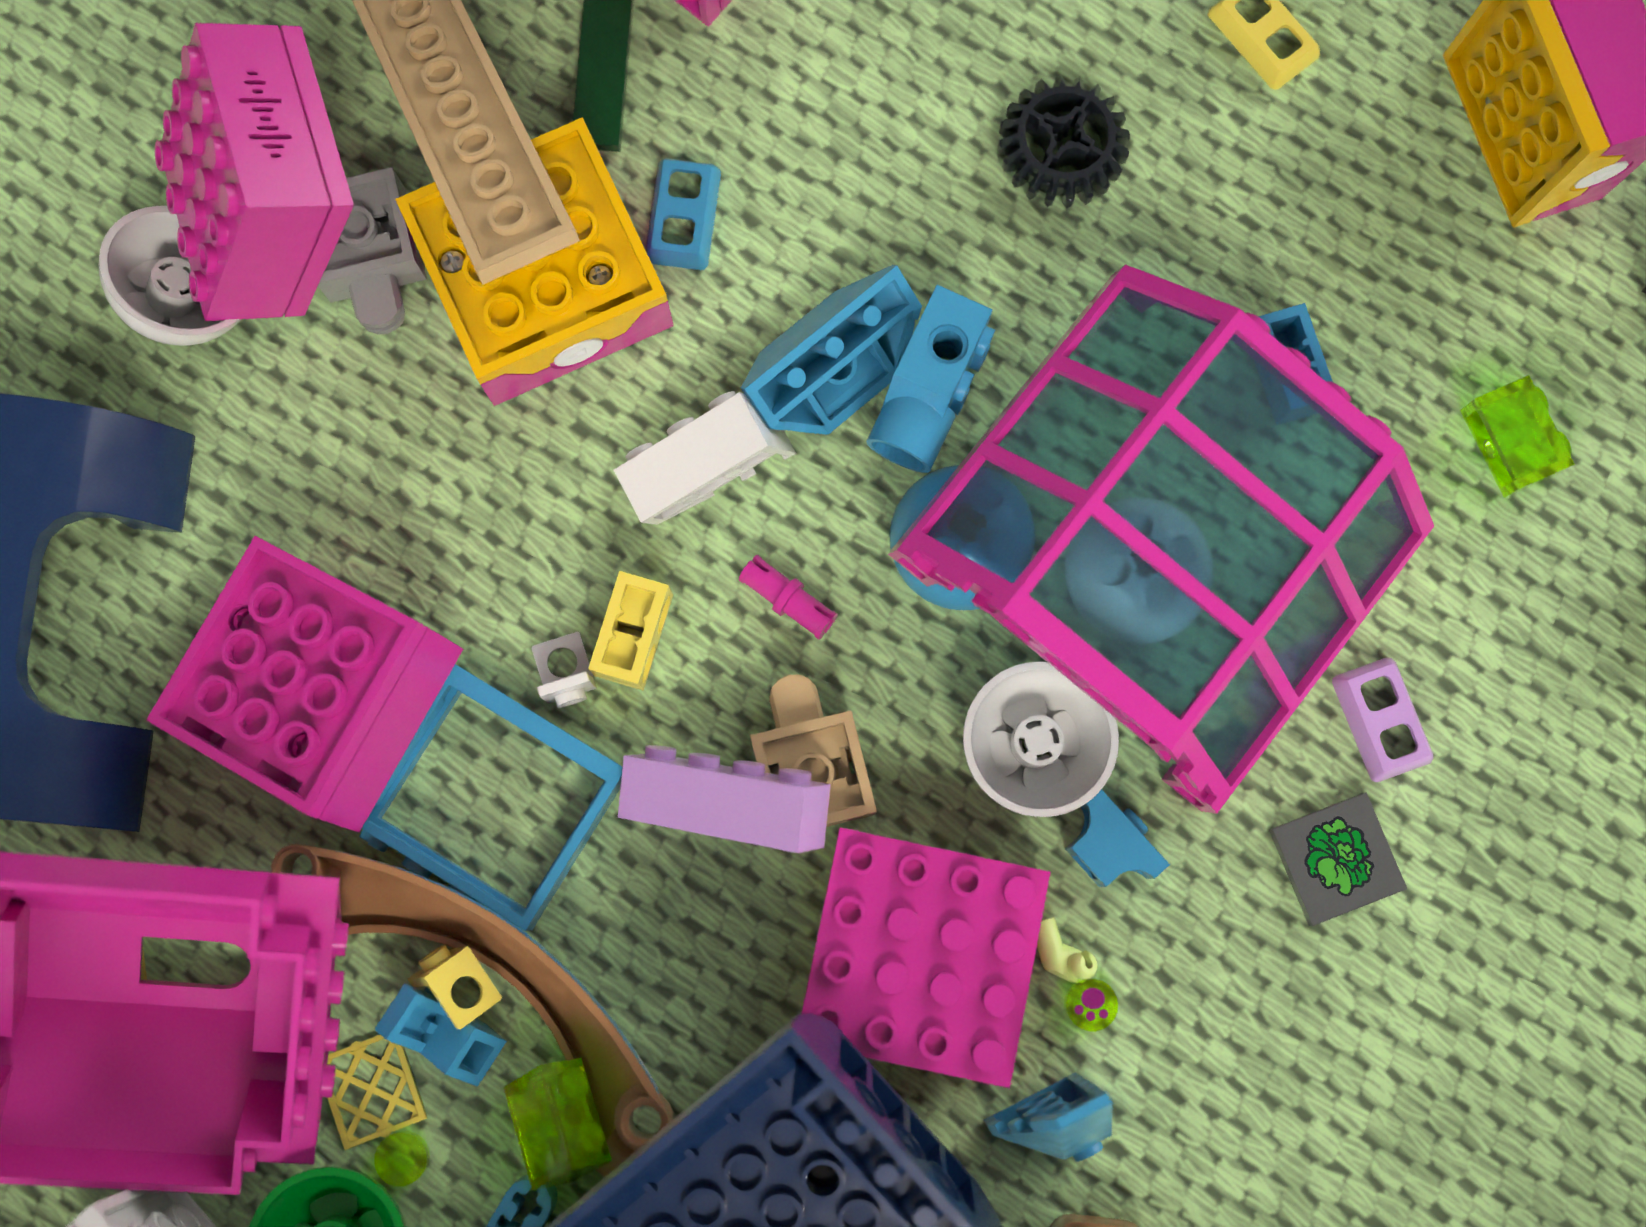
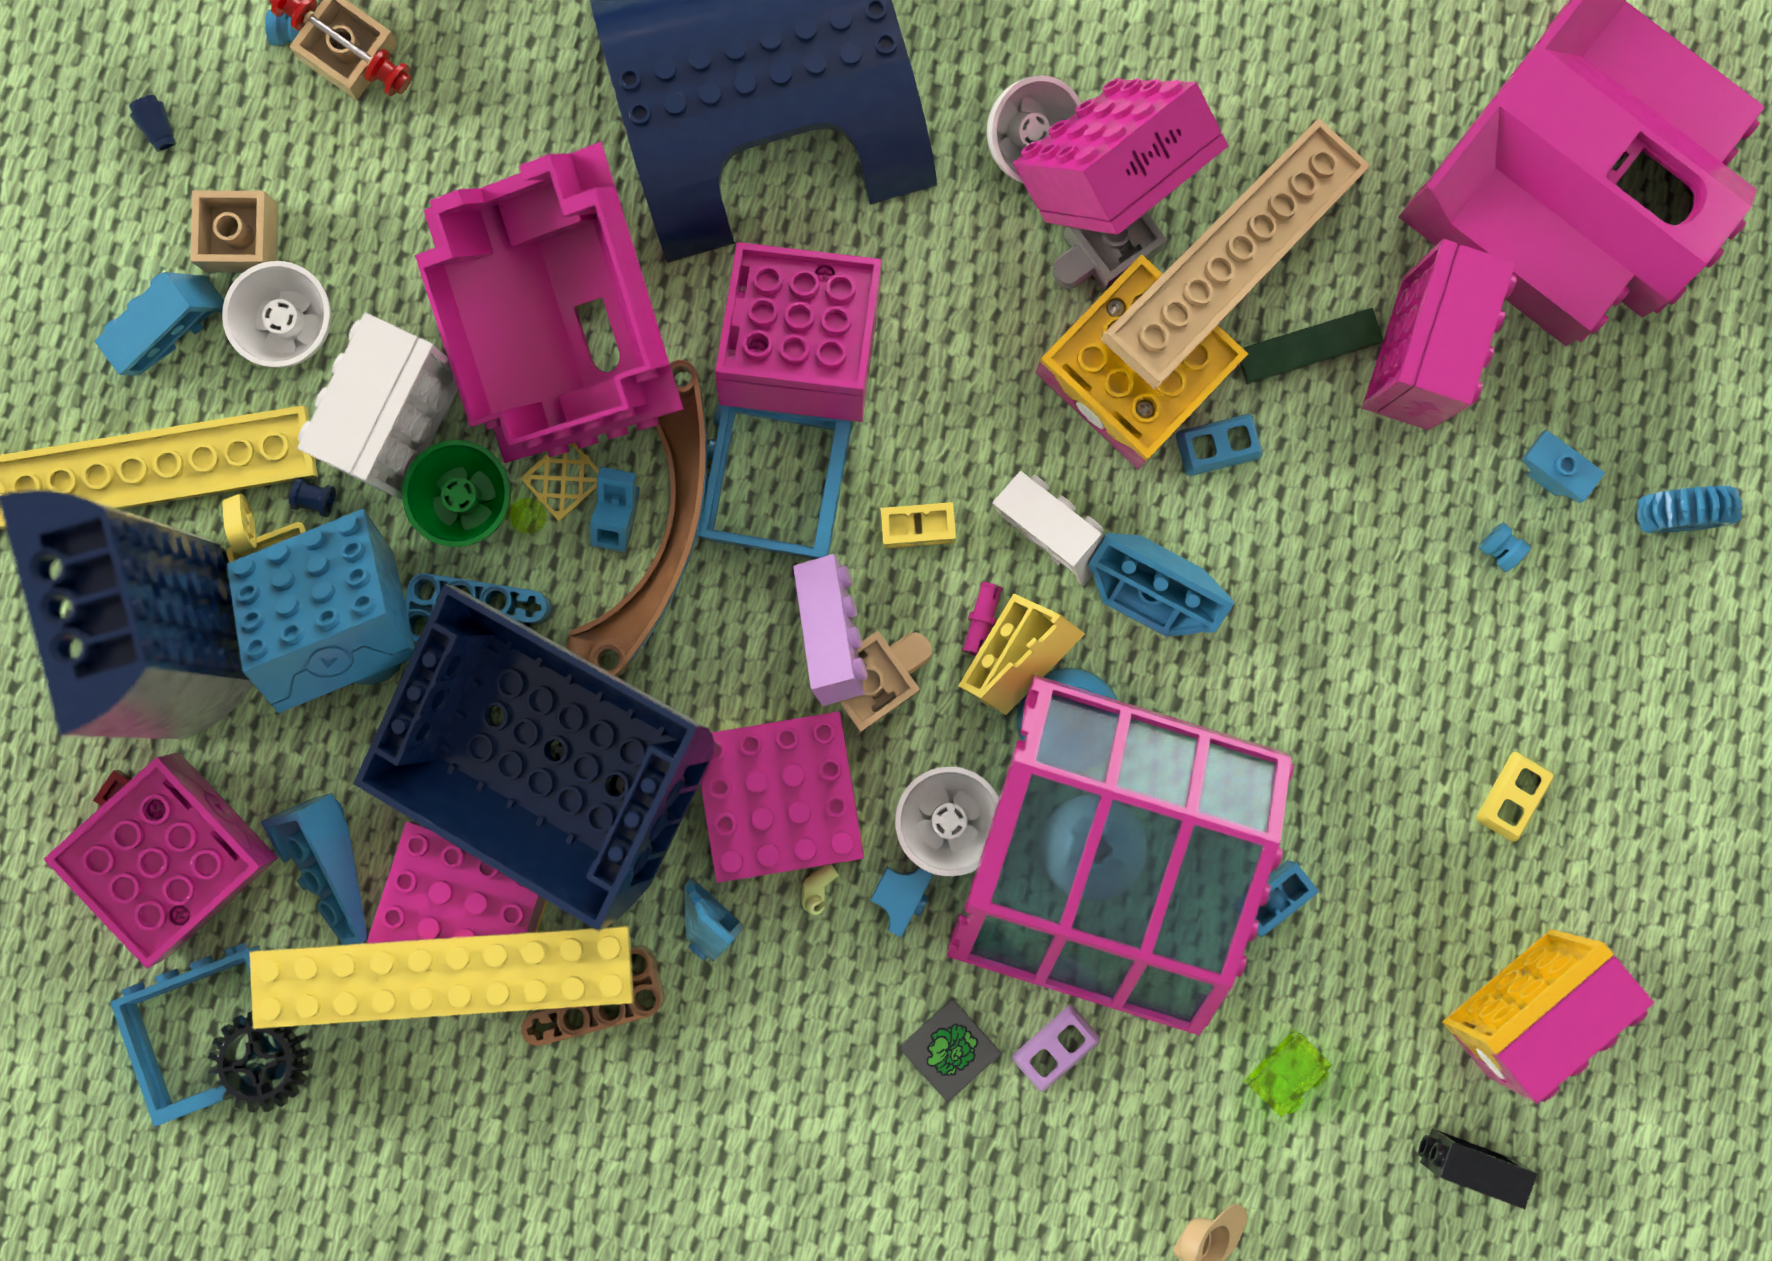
camera: 70 degrees right, 5 degrees up
(440, 972) = (652, 493): light yellow bracket -> none
(556, 1123) = (586, 605): clear neon green brick -> none
(568, 689) = (866, 501): white bracket -> none
(843, 559) = (1020, 644): none -> light yellow wedge
(930, 389) = (1155, 655): dark azure brick -> none
(1033, 117) = (1378, 669): black gear -> none
(1091, 1004) = (792, 920): clear neon green tile -> none

